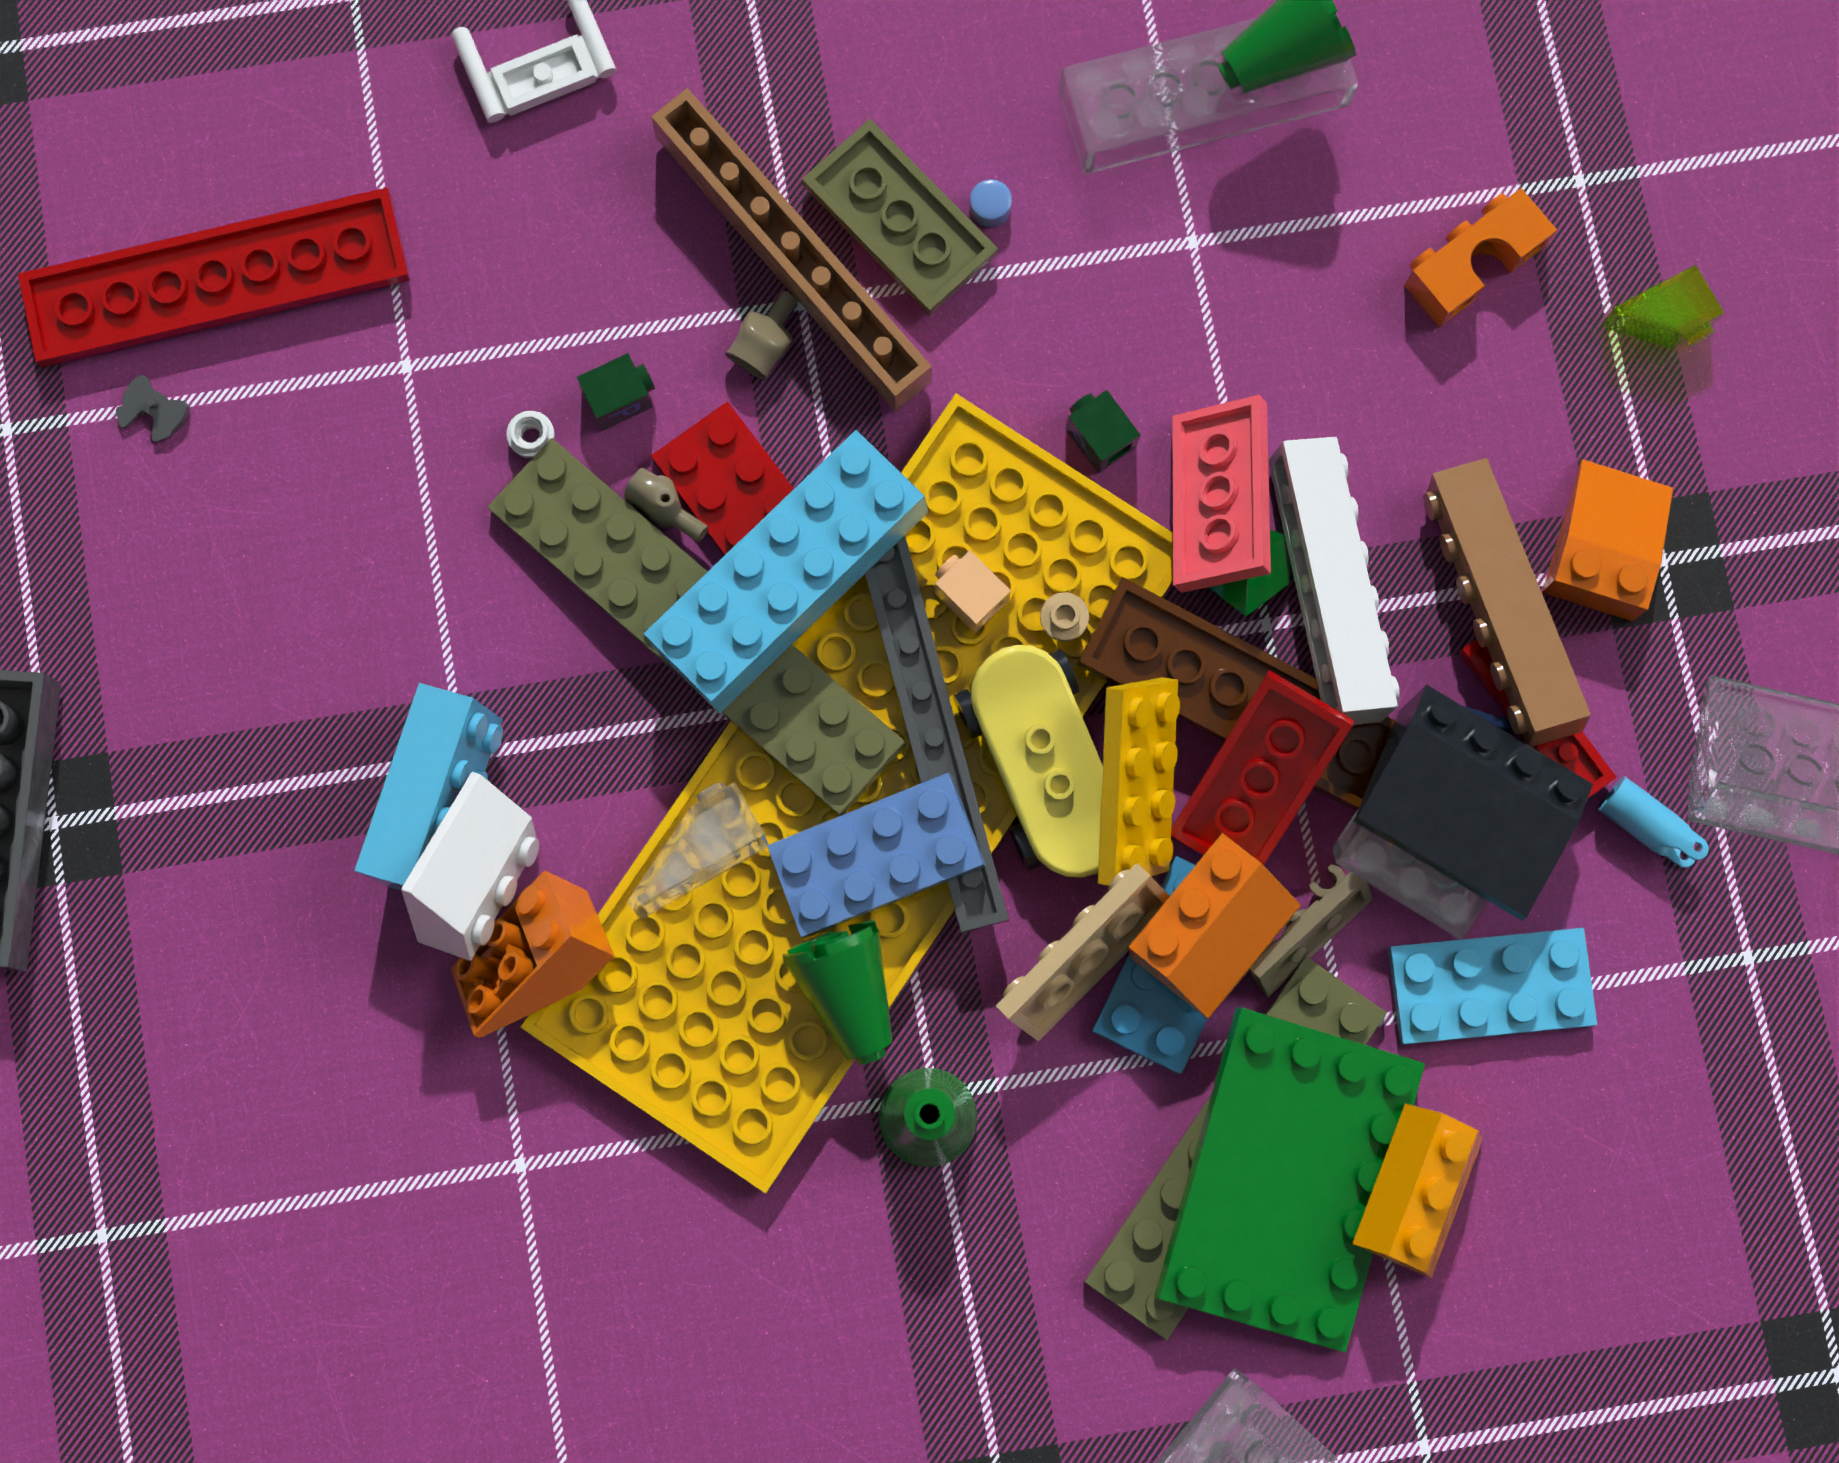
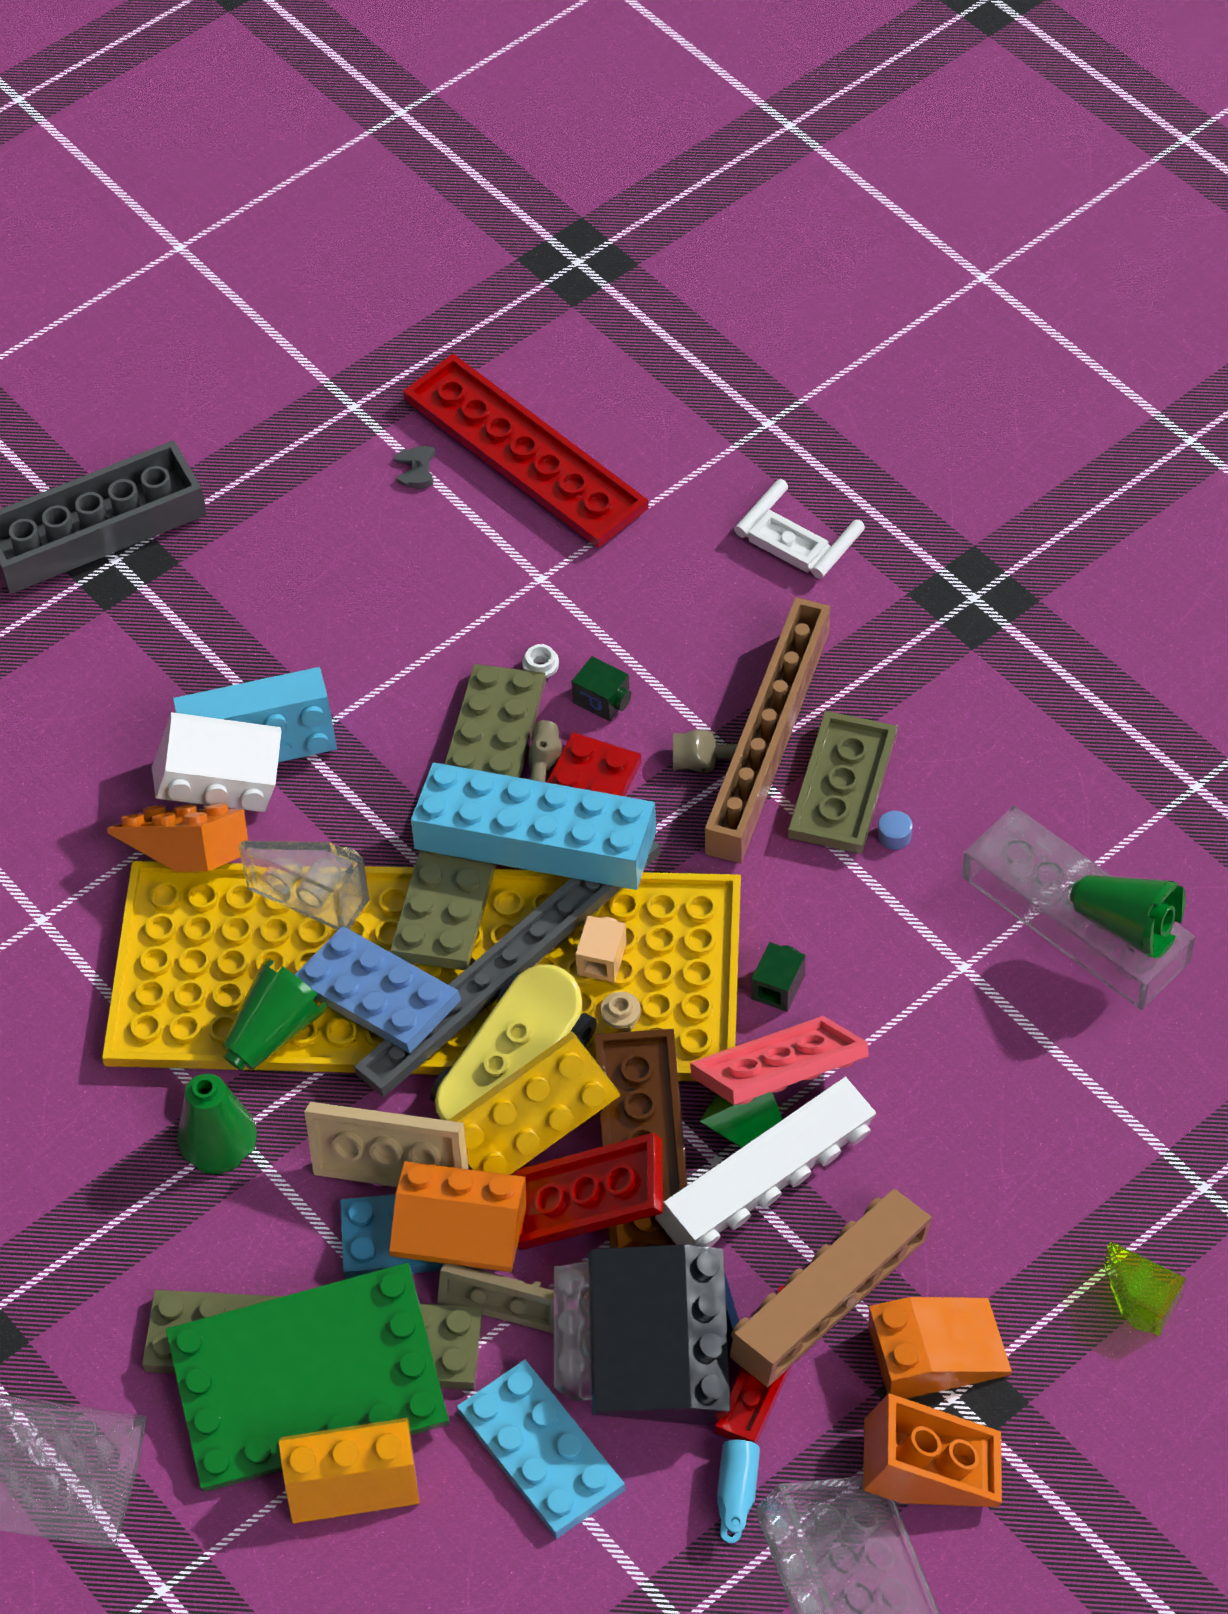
camera: 65 degrees right, 25 degrees down
(1509, 230) = (1057, 1127): orange arch -> none
(1730, 622) = (930, 1456): none -> orange slope

